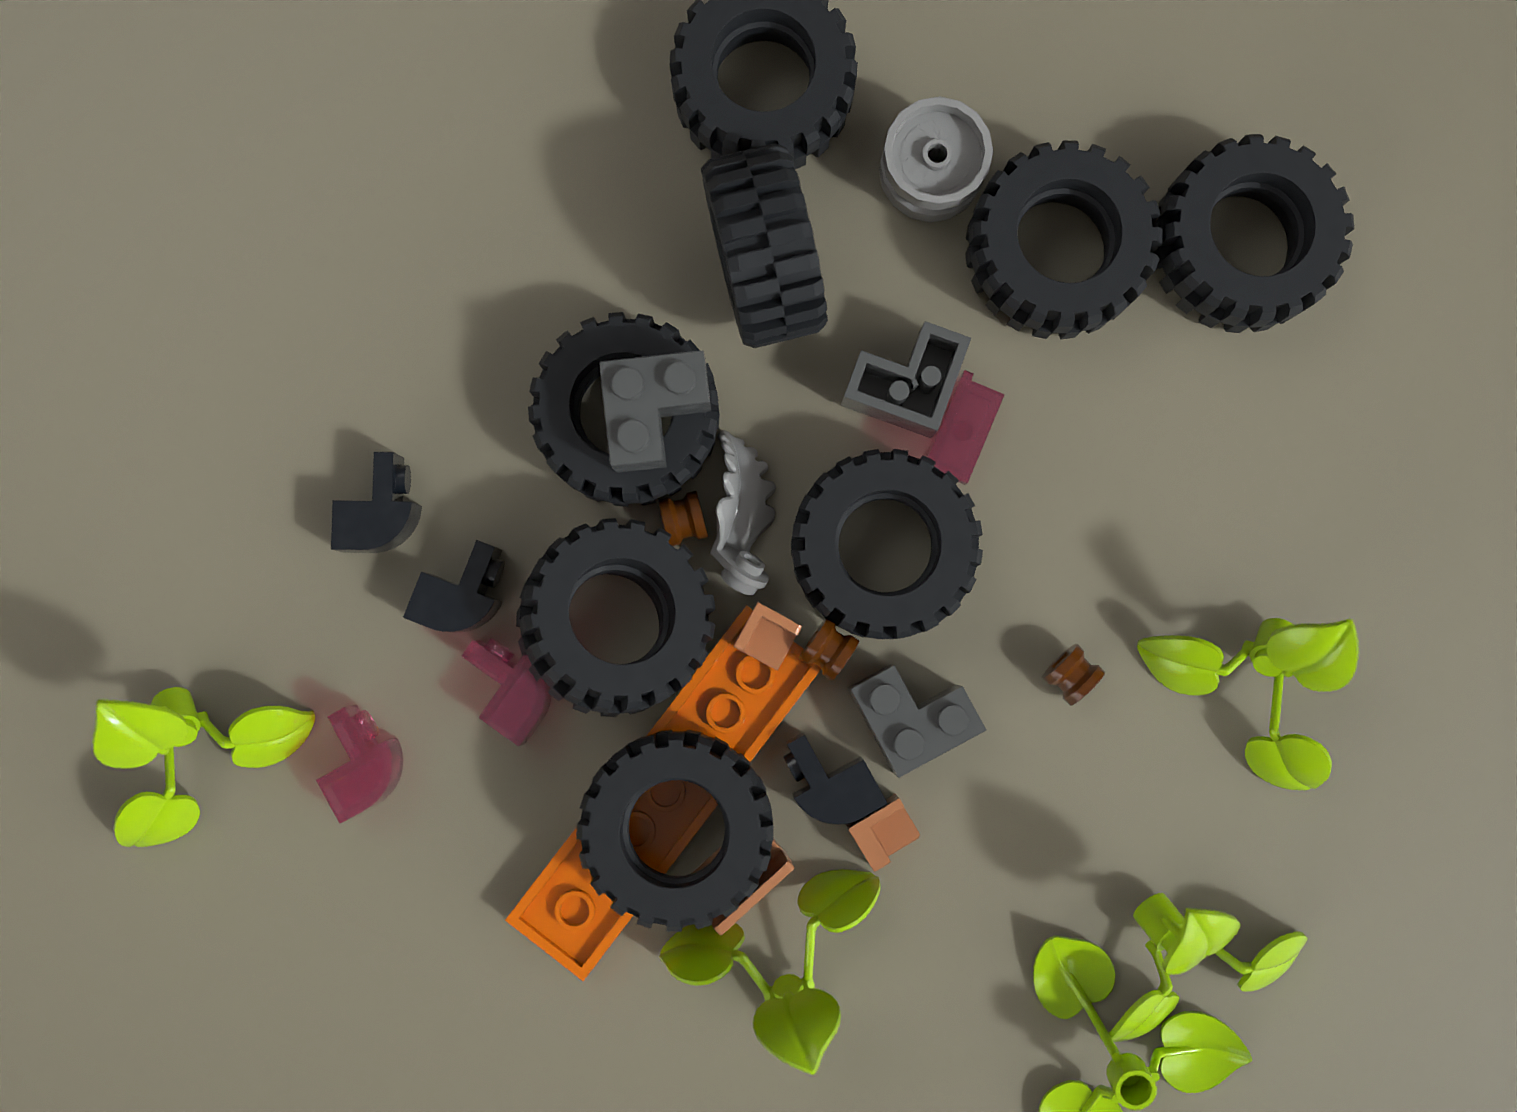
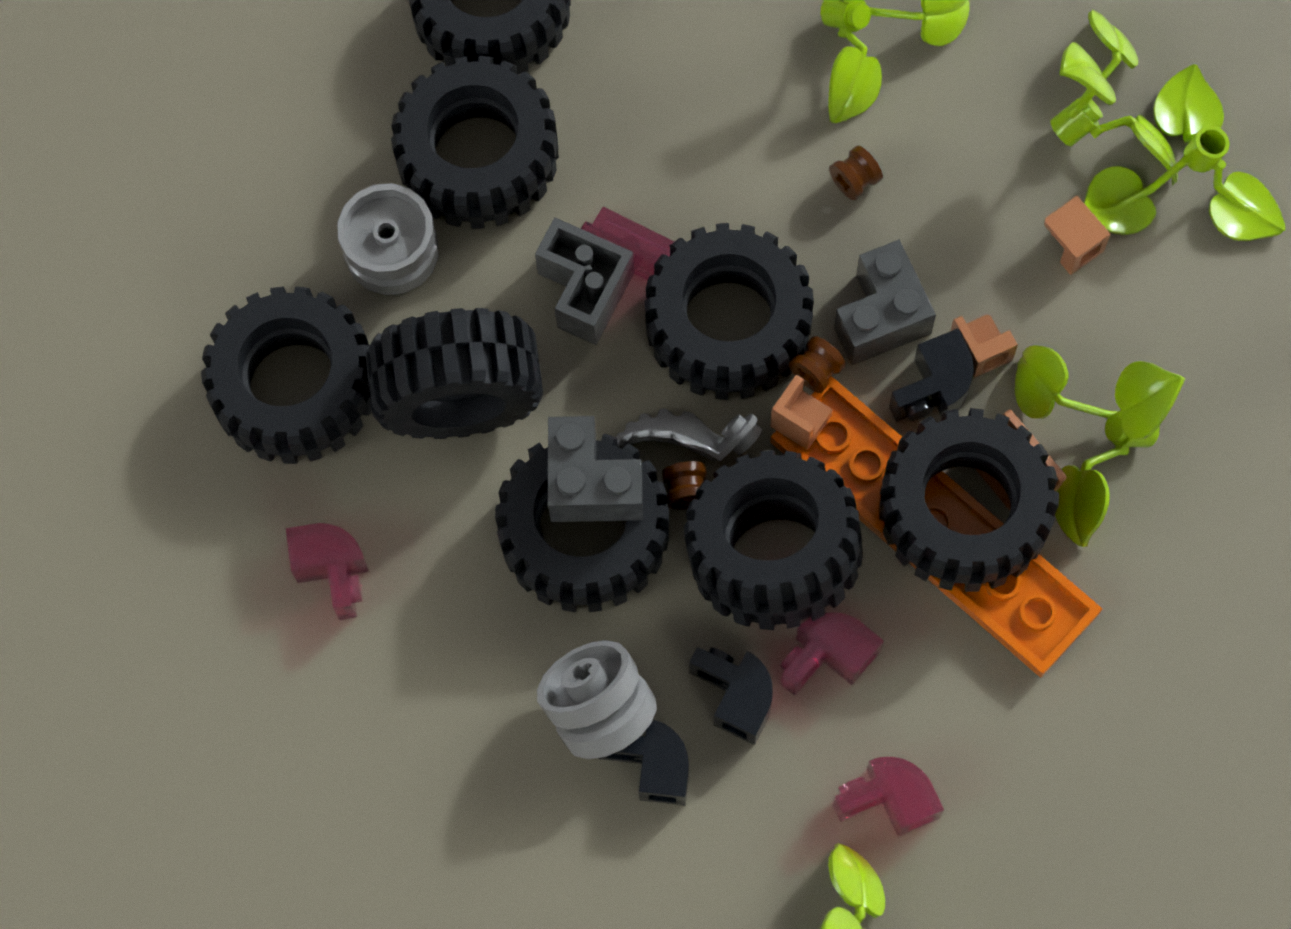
camera: 80 degrees left, 15 degrees down
(421, 445) = (596, 699): none -> light grey wheel
(570, 155) = (328, 552): none -> clear pink brick
(1022, 930) = (1078, 234): none -> nougat panel

